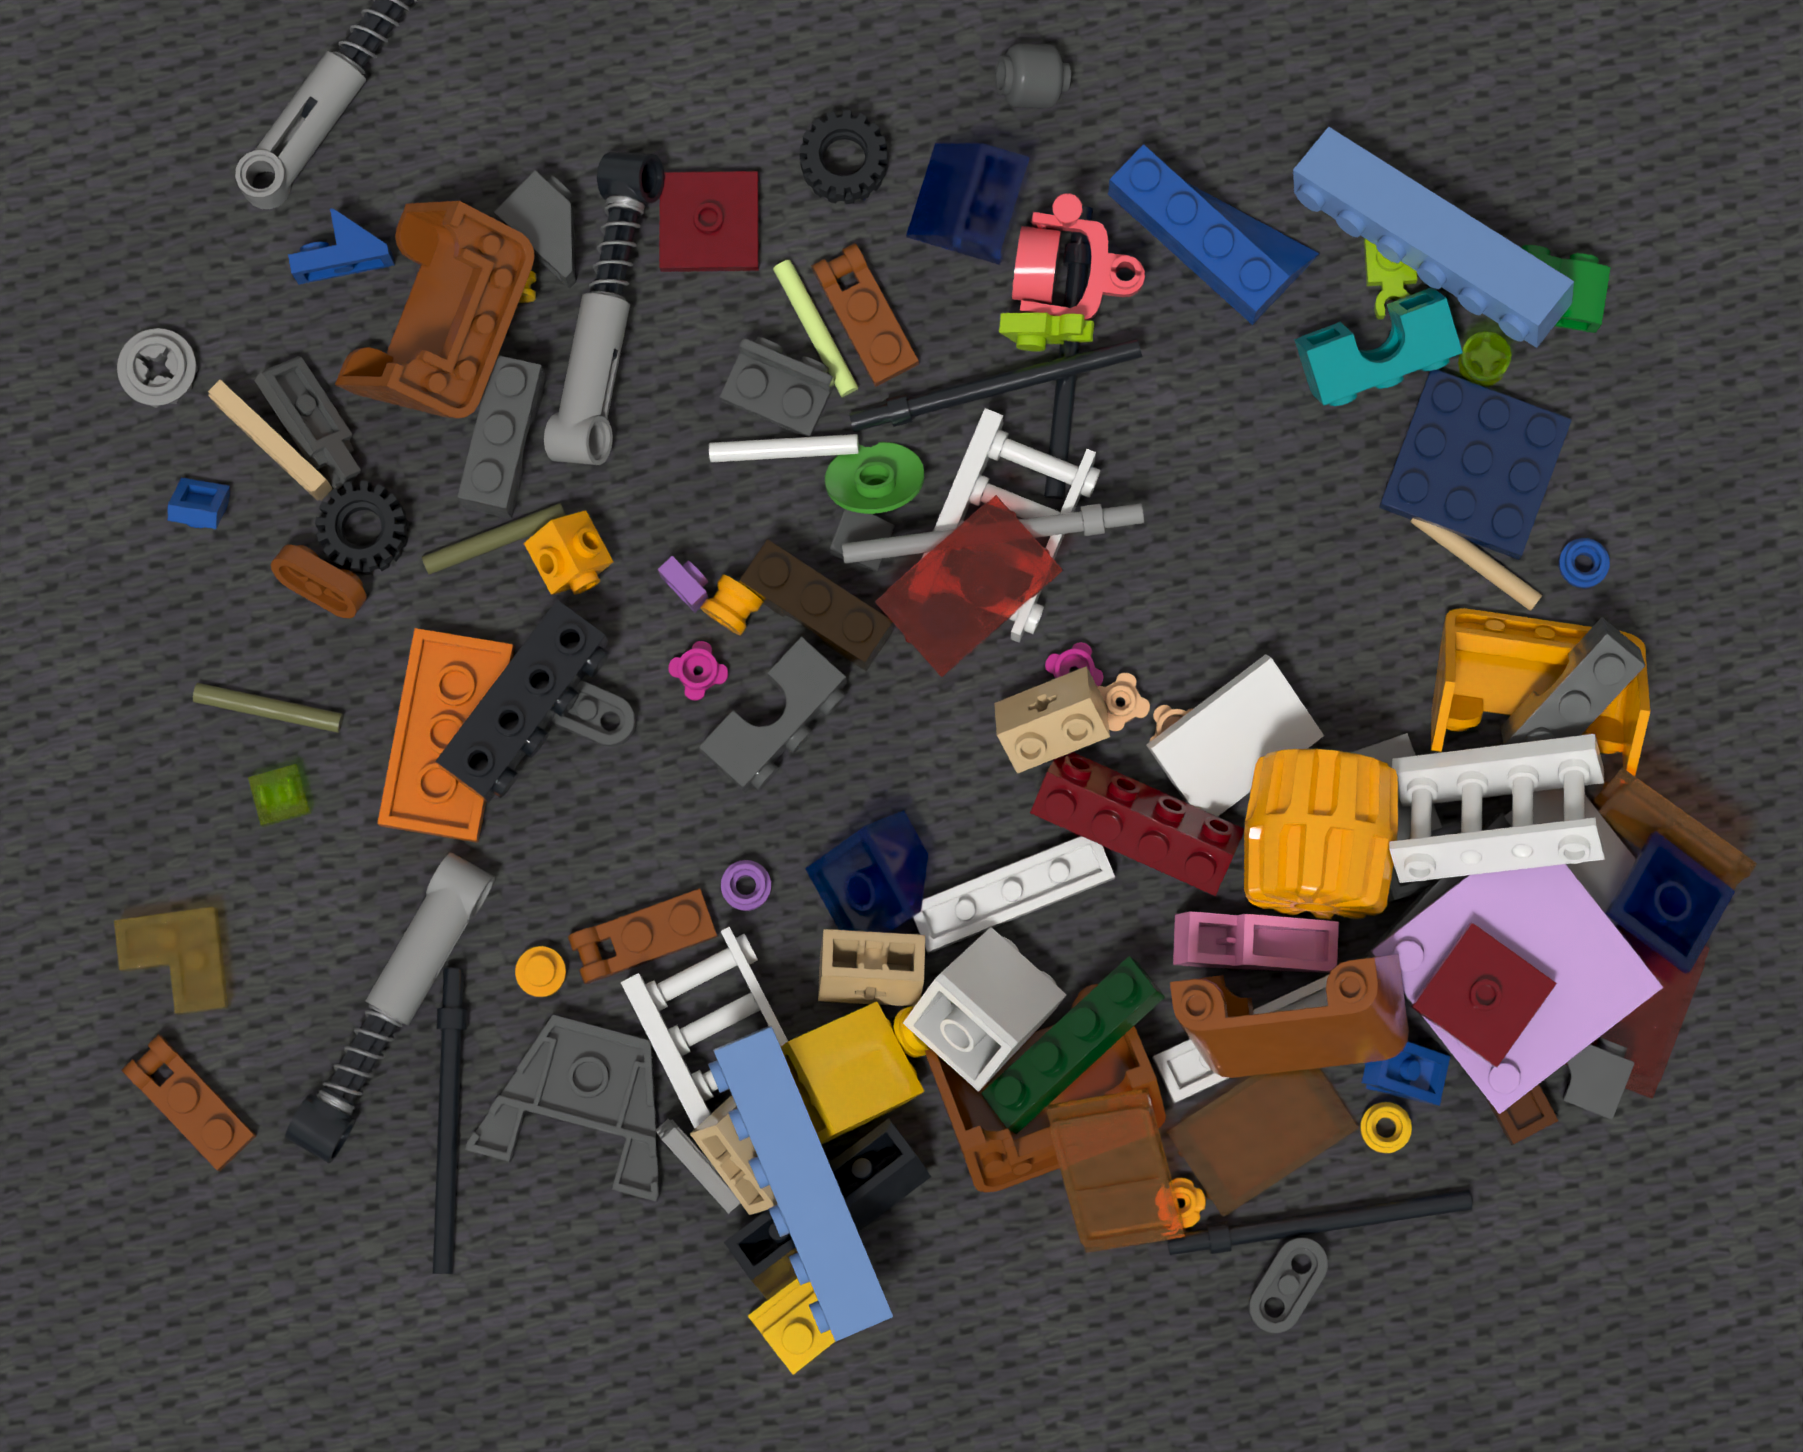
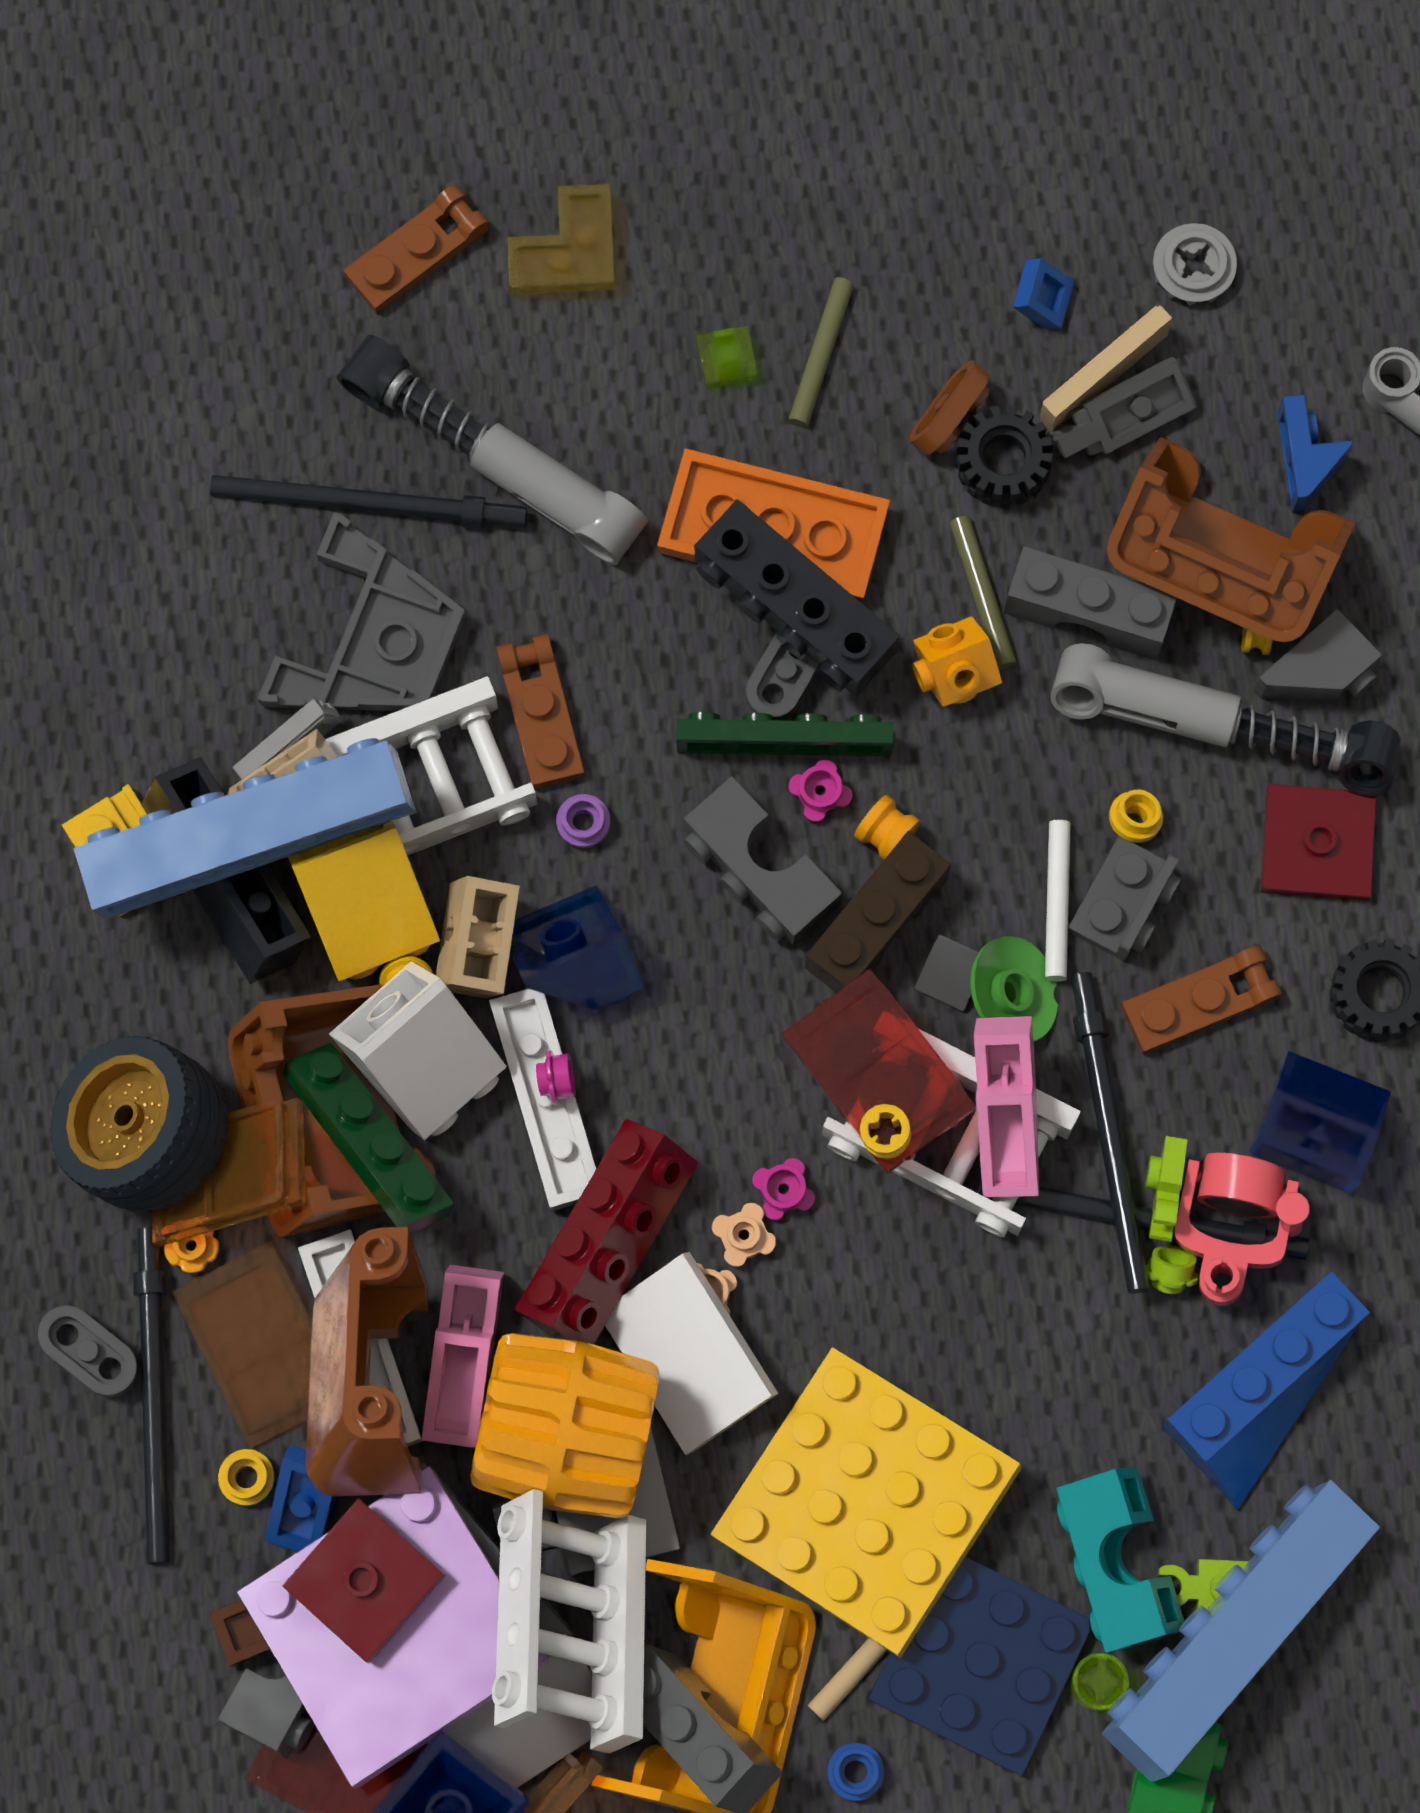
camera: 90 degrees right, 5 degrees down
(540, 971) = (513, 604): light orange plate -> none
(648, 684) = (763, 735): none -> dark green plate
(685, 582) = (915, 781): medium lavender plate -> none
(690, 374) = (1145, 806): none -> yellow plate
(815, 327) = (1190, 946): yellowish green bar -> none
(989, 470) = (1007, 1106): none -> bright pink slope
(997, 880) = (556, 1077): none -> dark pink plate
(1041, 559) = (898, 1142): none -> yellow bush
(1051, 720) = (725, 1151): tan brick -> none
(1081, 1256) = (139, 1124): none -> black wheel
(1090, 520) = (942, 1211): light grey bar -> none
(1114, 322) = (1171, 1269): none -> lime plate
(1350, 571) = (866, 1502): none -> yellow plate

